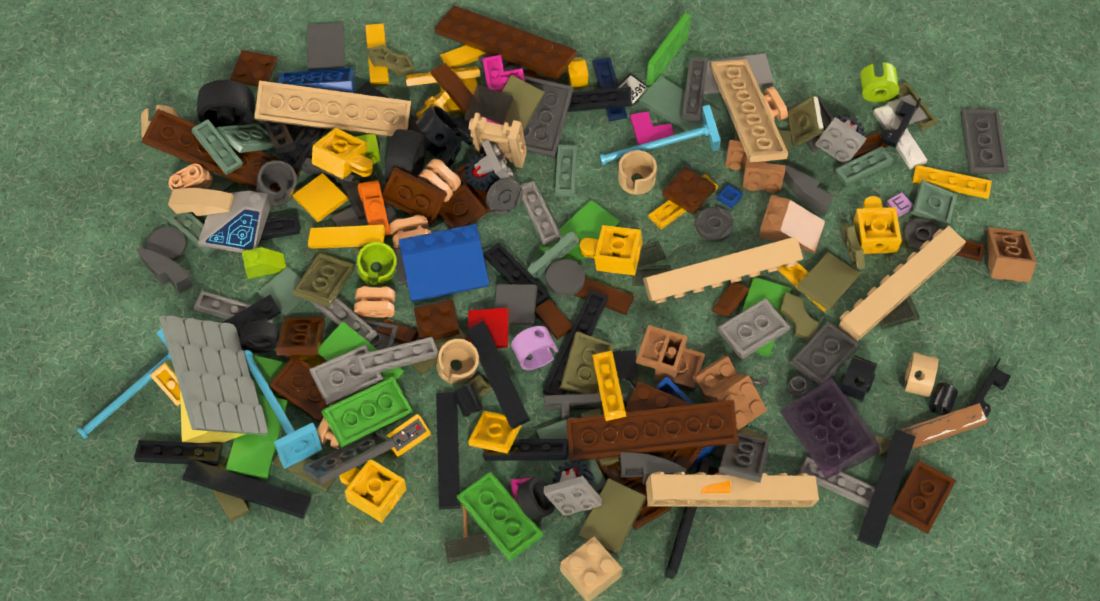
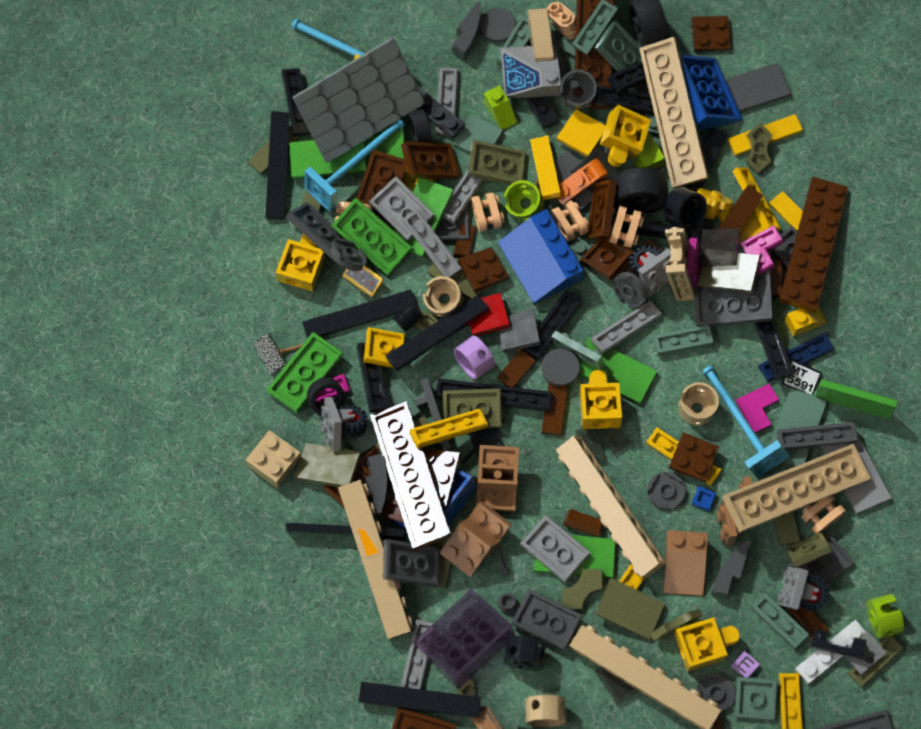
camera: 75 degrees right, 10 degrees up
(385, 435) = (348, 255): none -> dark grey tile

